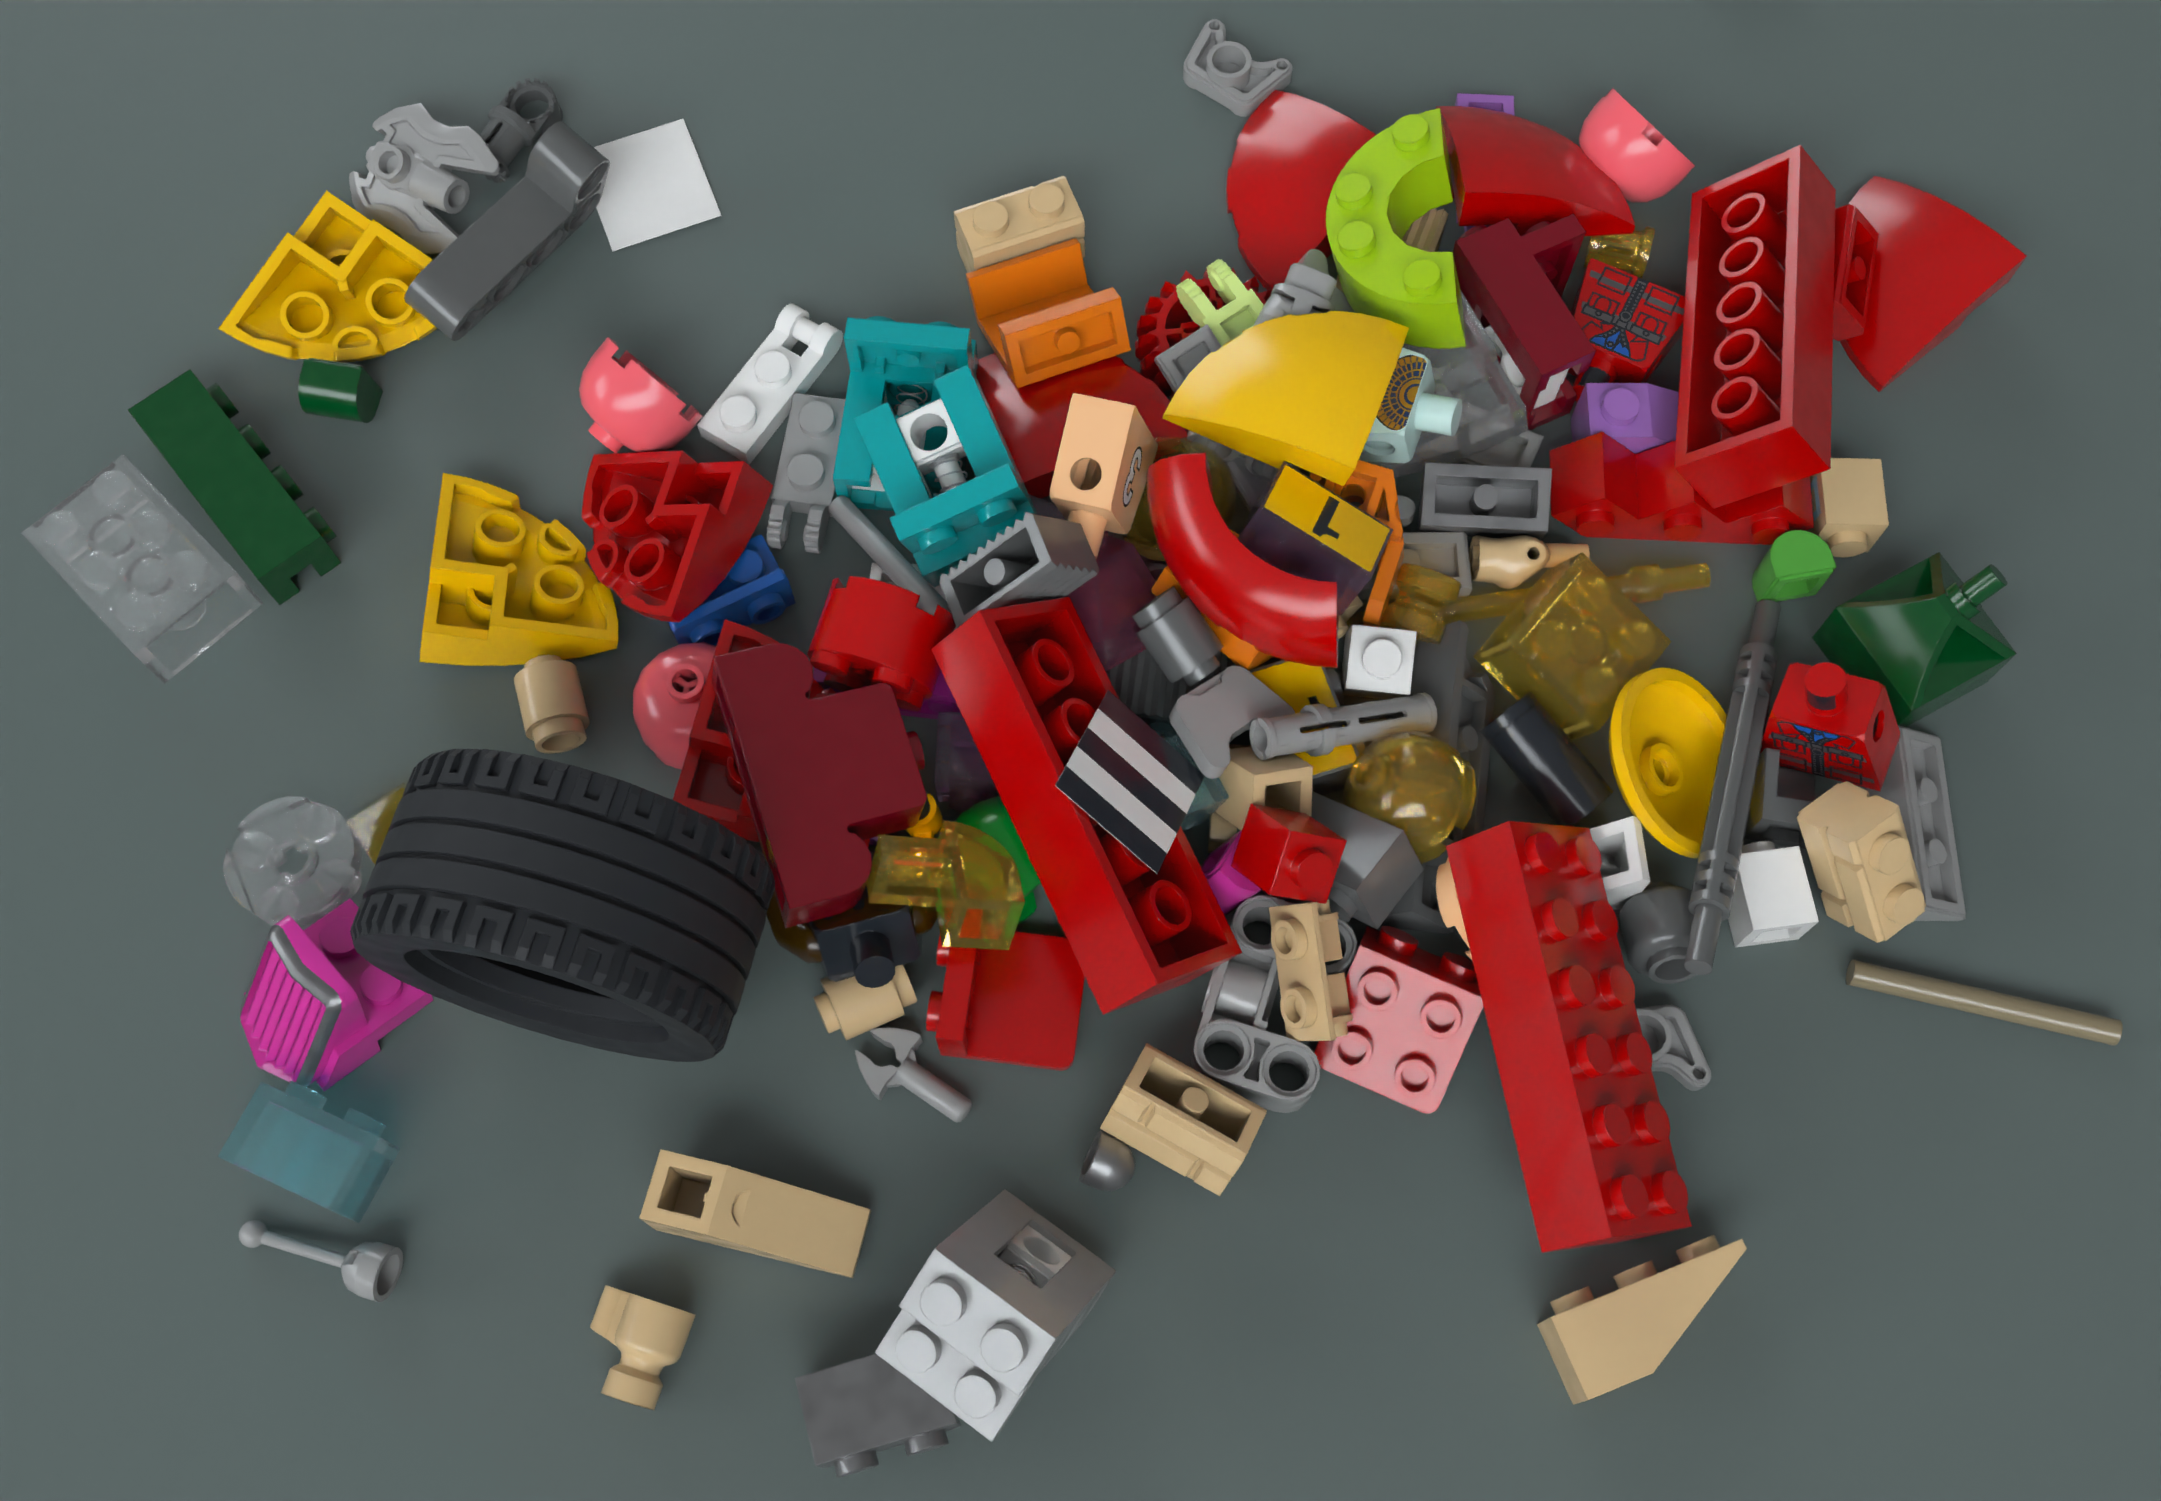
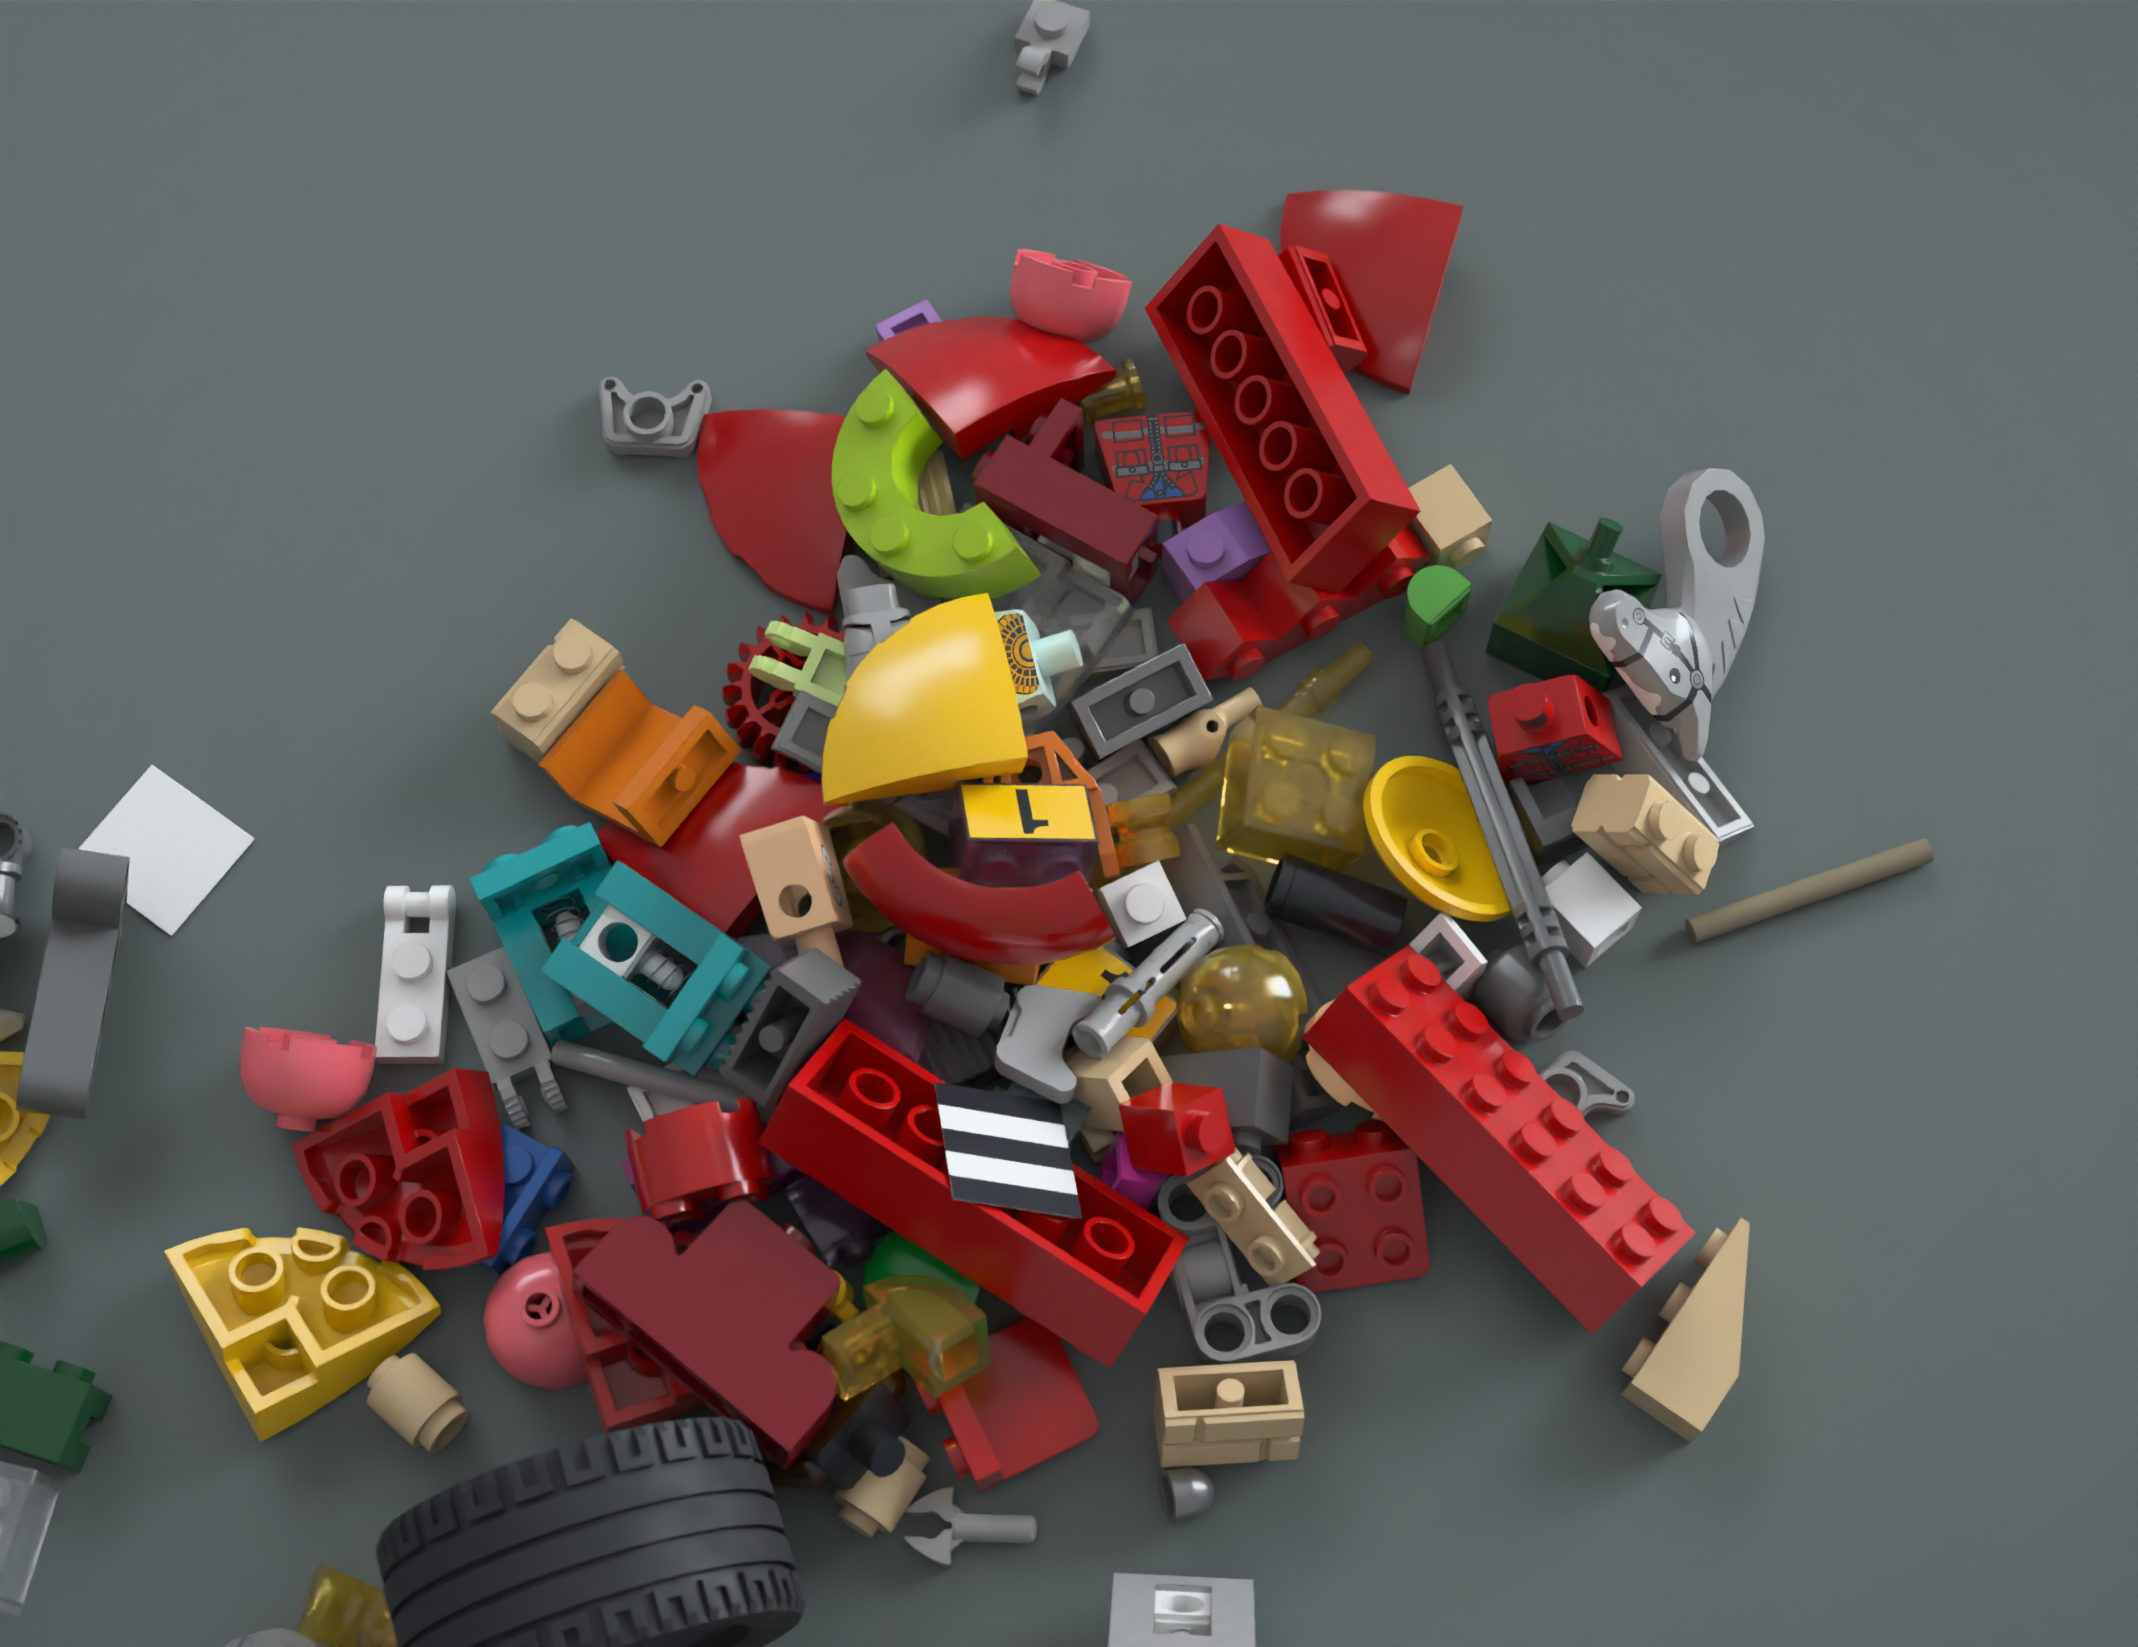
camera: 30 degrees left, 0 degrees up
(1998, 731) = (1684, 651): none -> light grey animal

